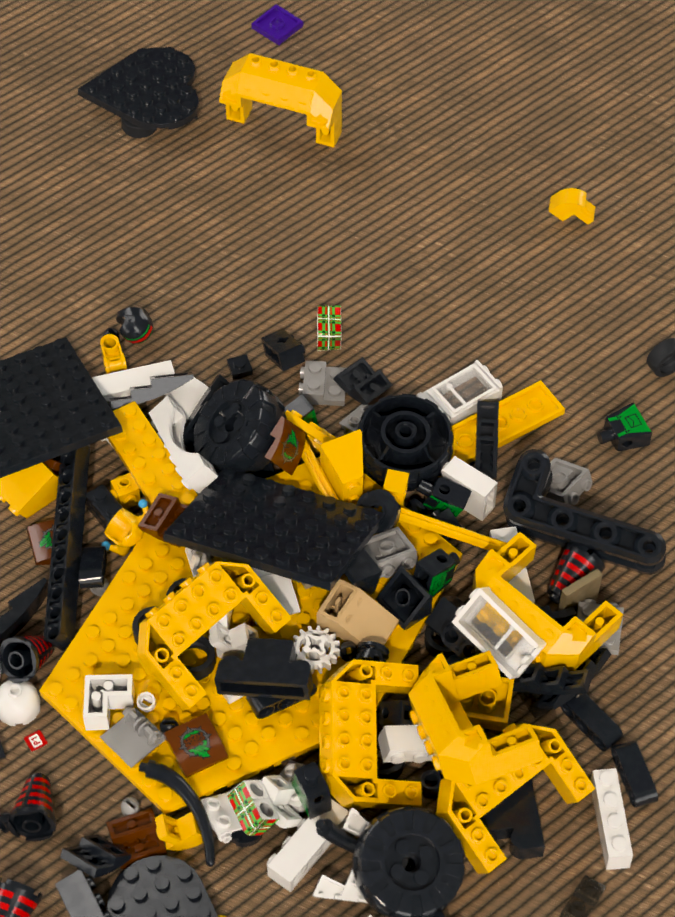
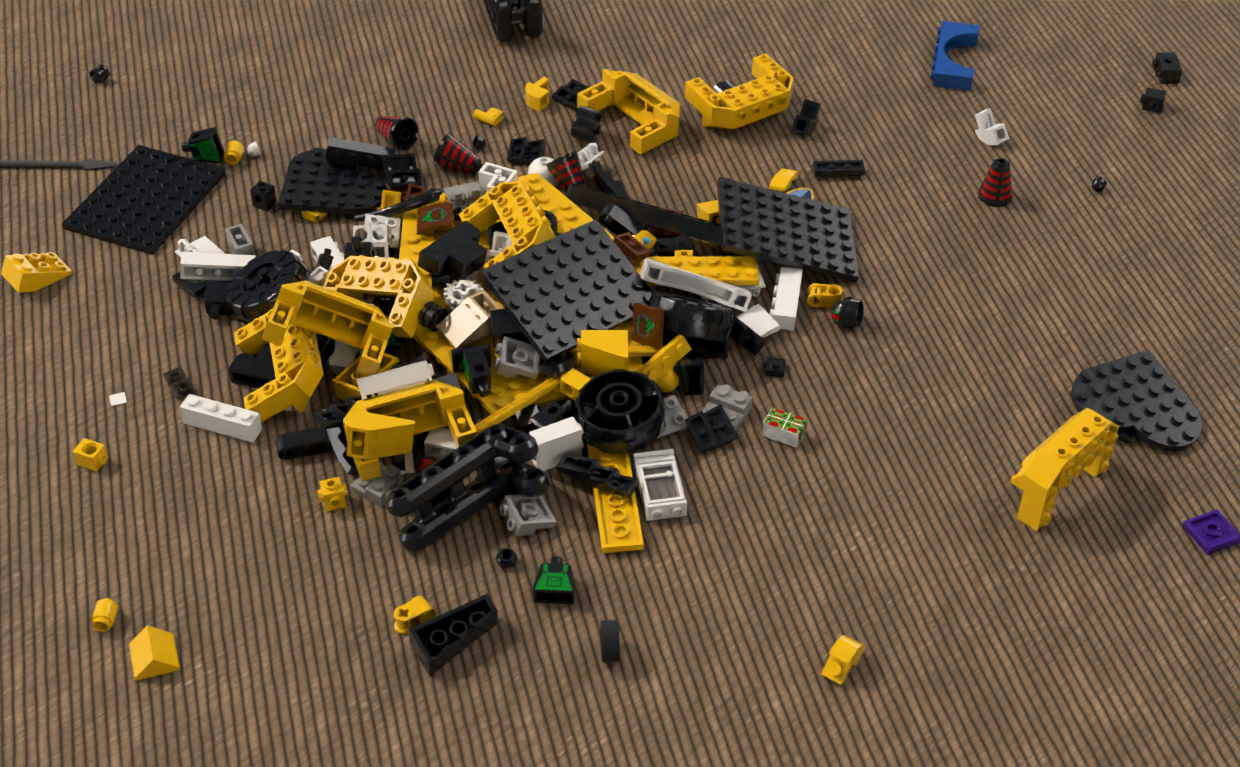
camera: 115 degrees right, 10 degrees down
(159, 386) = (767, 293): slope -> none
(283, 349) = (771, 386): black brick -> none
(596, 595) = (379, 435): none -> yellow slope
(622, 476) = (506, 558): none -> black plate
(634, 774) = (244, 448): black beam -> none
(643, 654) = (332, 494): none -> yellow brick

